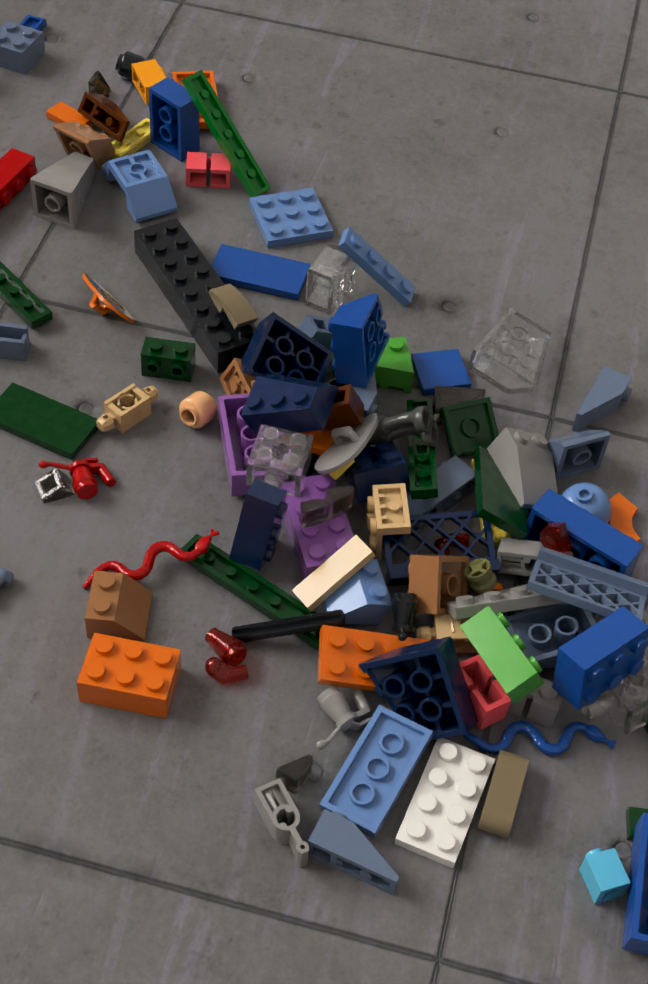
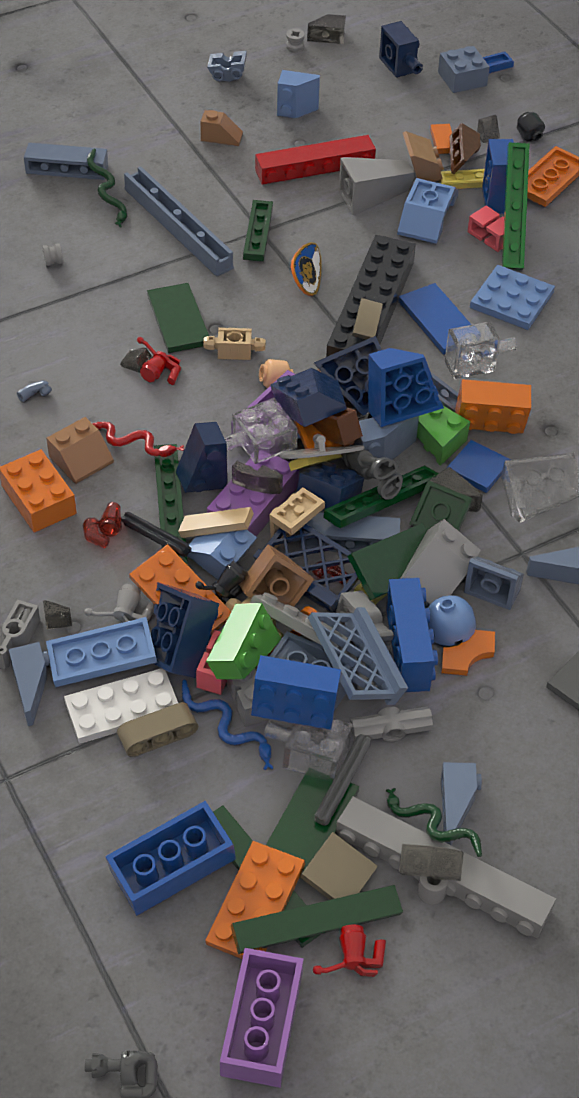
camera: 50 degrees right, 0 degrees up
(146, 75) = (536, 137): light orange brick -> none
(168, 359) = (297, 331): dark green brick -> none
(376, 266) = (509, 354): medium blue plate -> none
(412, 307) = (494, 405): none -> orange brick
(480, 576) = (307, 597): olive wheel -> none
(556, 537) = (384, 612): clear red tile -> none
(604, 875) = (150, 817): medium azure brick -> none

